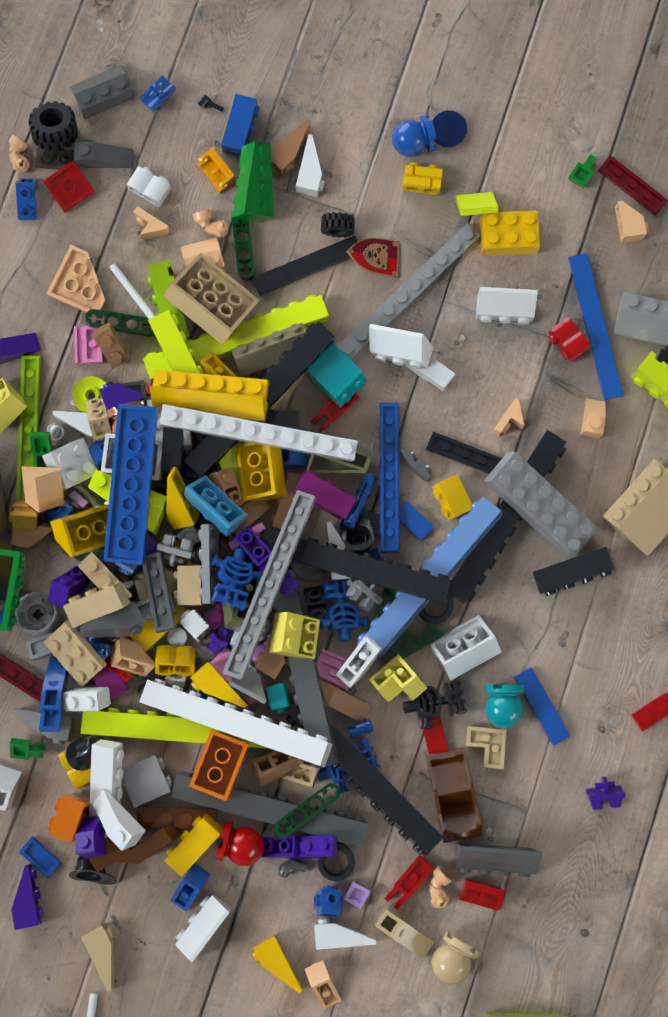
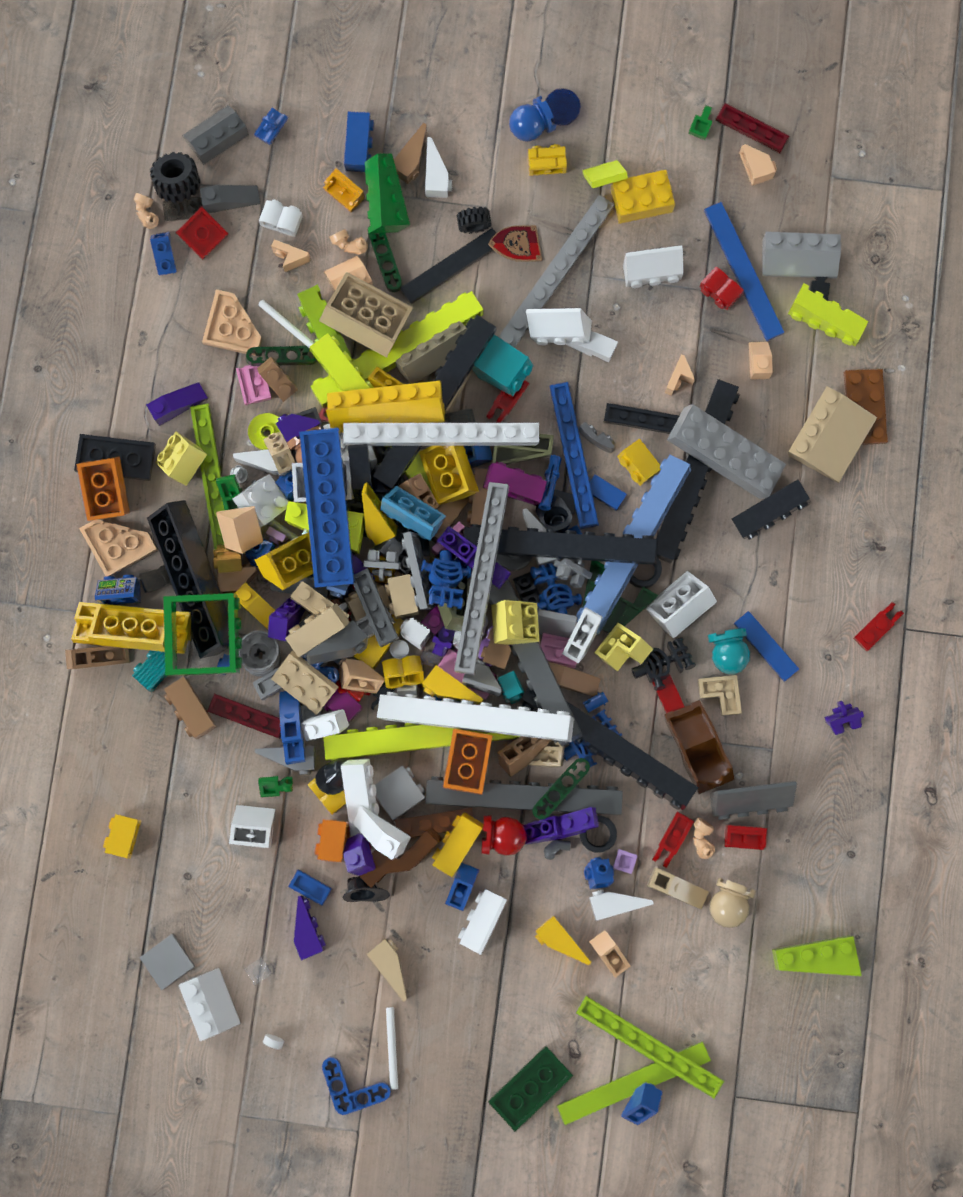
camera: 10 degrees left, 0 degrees up
(42, 563) = (254, 604): none -> yellow slope
(204, 100) = (318, 124): black hand -> none
(335, 642) = (556, 623): none -> light grey tile

